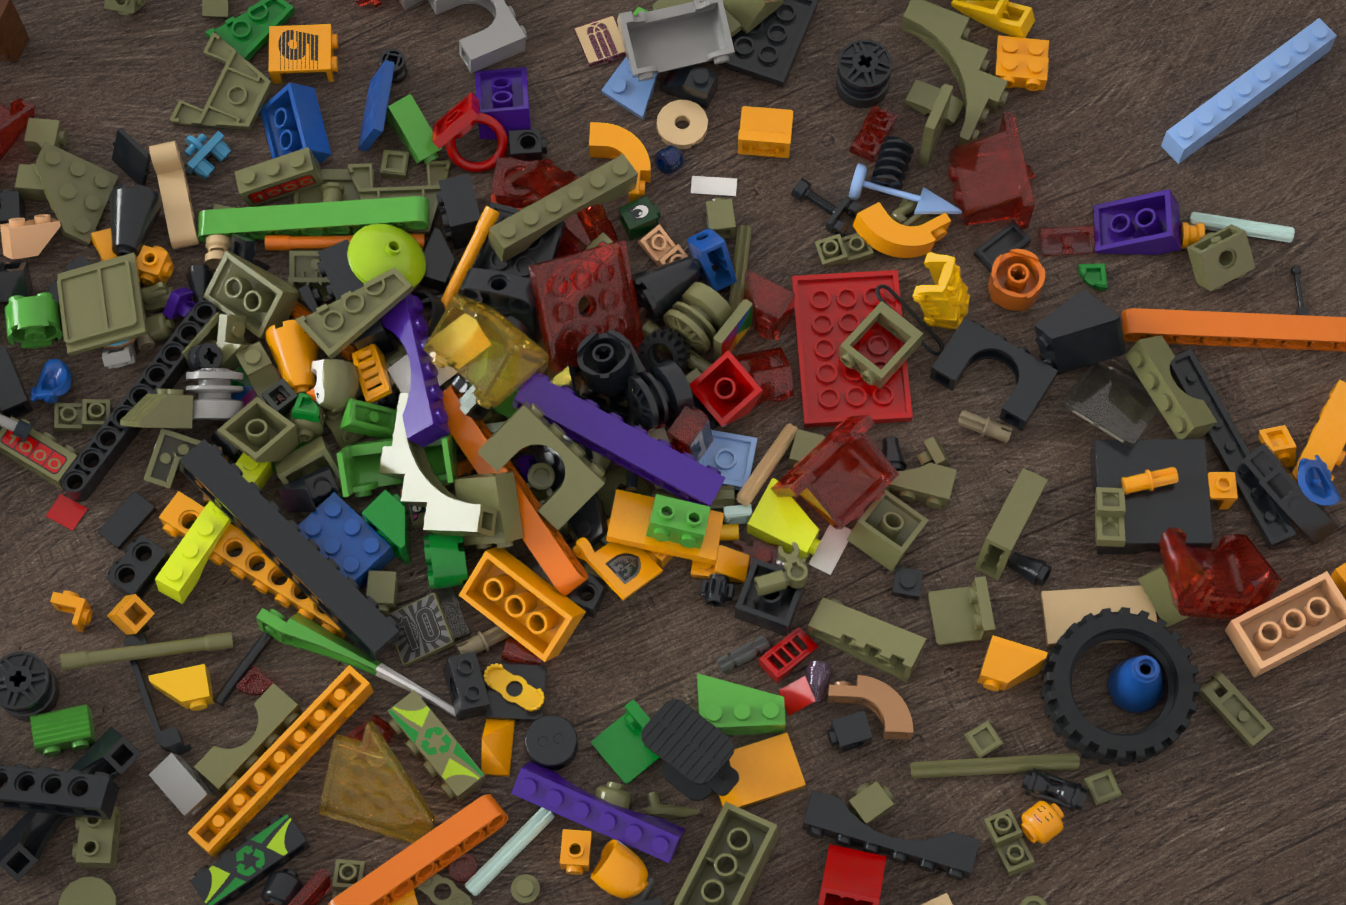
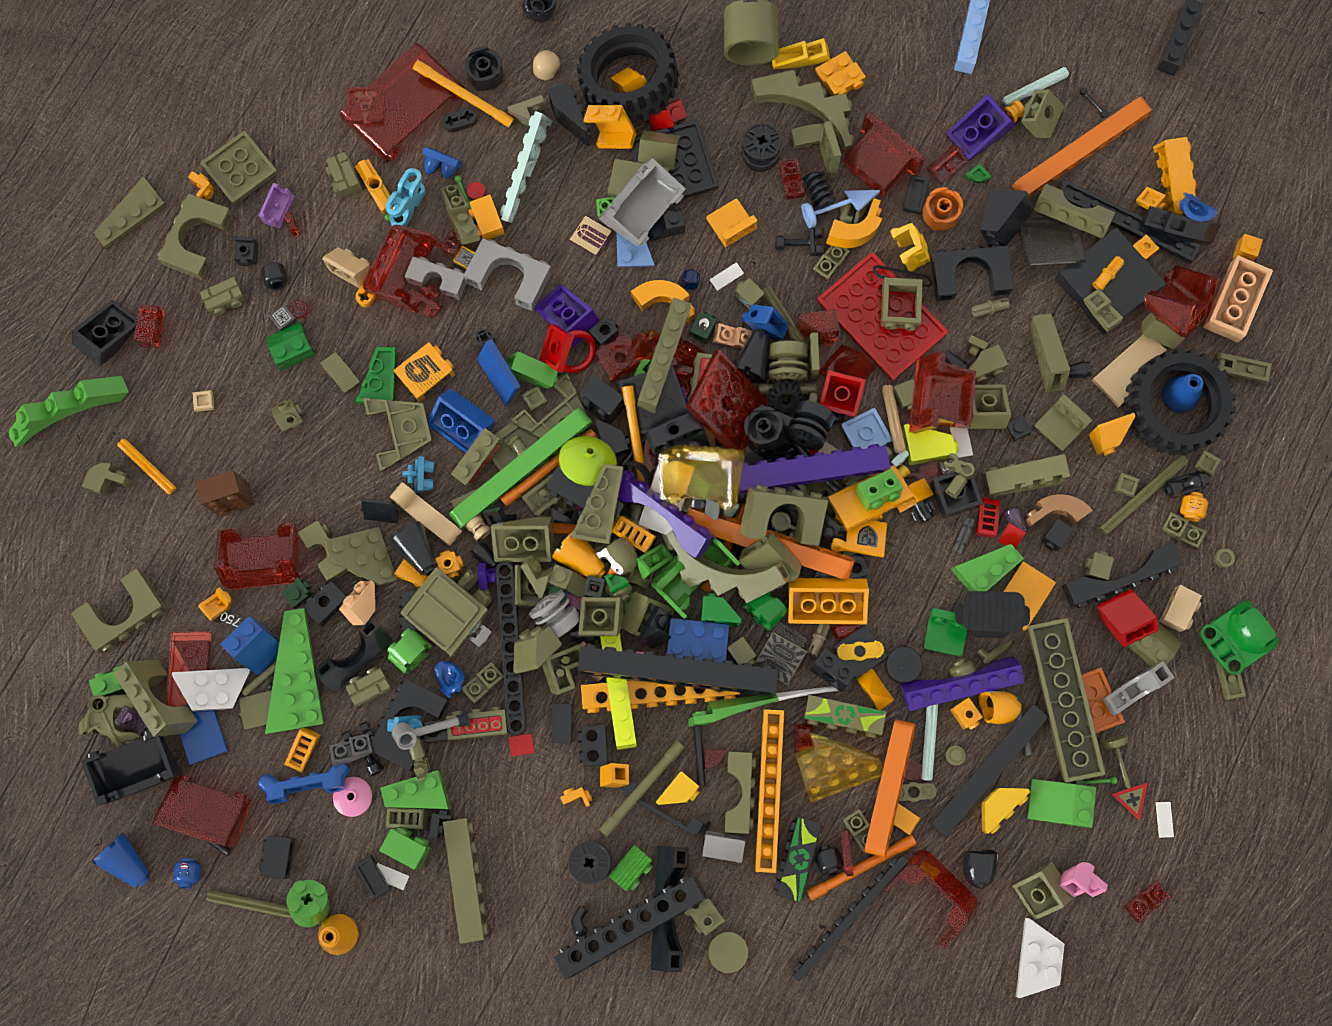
camera: 35 degrees left, 10 degrees up
(198, 359) = (531, 597): black wheel -> none
(678, 111) = (679, 242): tan tile -> none
(691, 433) = (843, 433): clear red brick -> none

